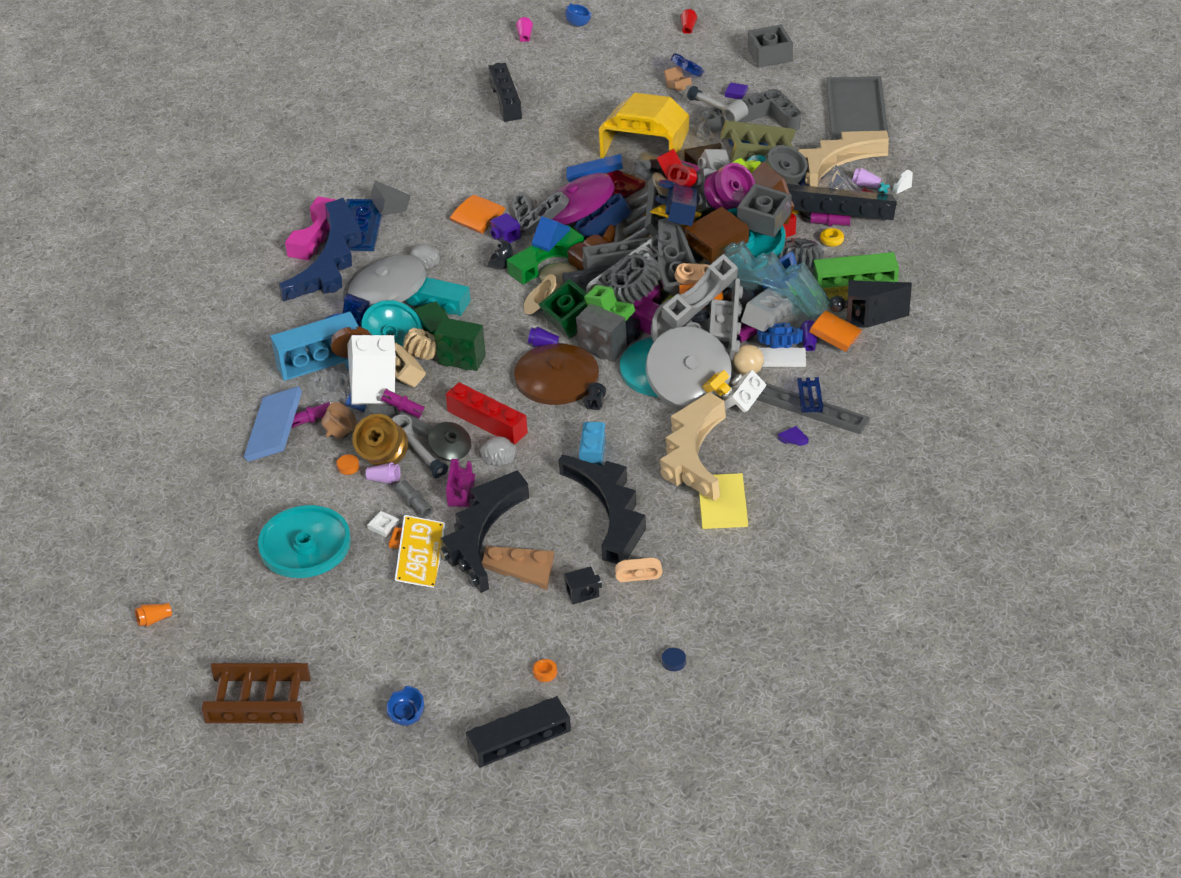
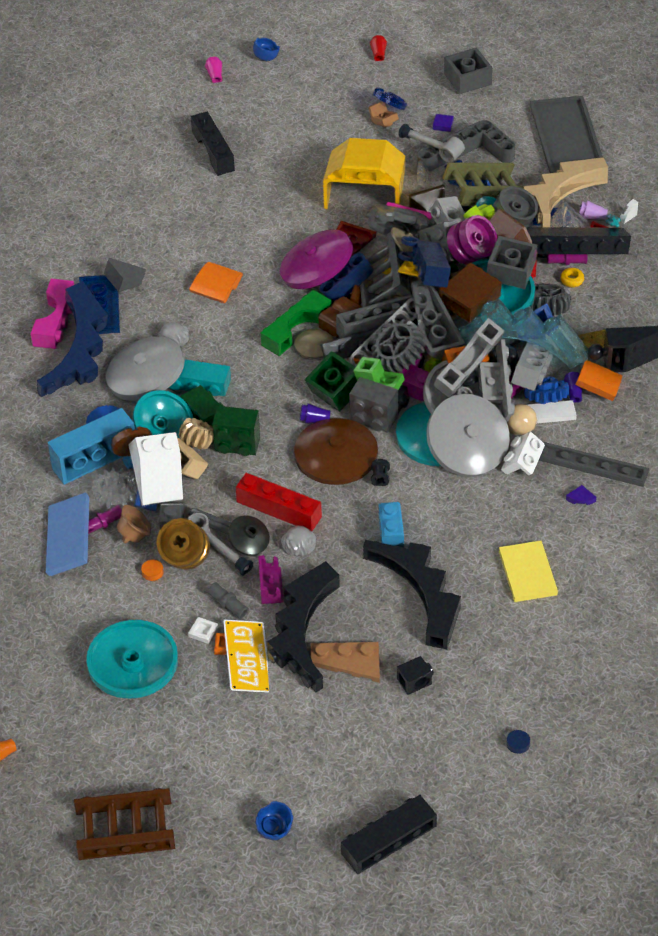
camera: 10 degrees left, 5 degrees up
(356, 306) = (121, 398): clear blue bracket -> none
(384, 473) = (191, 576): lavender cone -> none
(402, 403) = (193, 499): magenta pin -> none
(499, 258) = (251, 331): black hair -> none
(505, 228) = (249, 297): dark purple brick -> none
(530, 220) = (270, 287): dark grey beam -> none
(542, 291) = (302, 367): tan piece -> none
(545, 670) = (397, 767): orange tile -> none
(549, 233) = (297, 301): blue slope -> none
(602, 165) = (323, 221): blue tile -> none
(638, 569) = (464, 653): light nougat plate -> none
(667, 160) = (406, 217): red brick -> none
(682, 175) = (422, 230): red plate -> none
(683, 445) = (483, 534): tan arch -> none
(690, 273) = (459, 336): light nougat plate -> none
(717, 383) = (499, 449): yellow tile -> none
(809, 384) = (584, 438): clear blue tile -> none
(871, 267) = (602, 312): bright green brick -> none

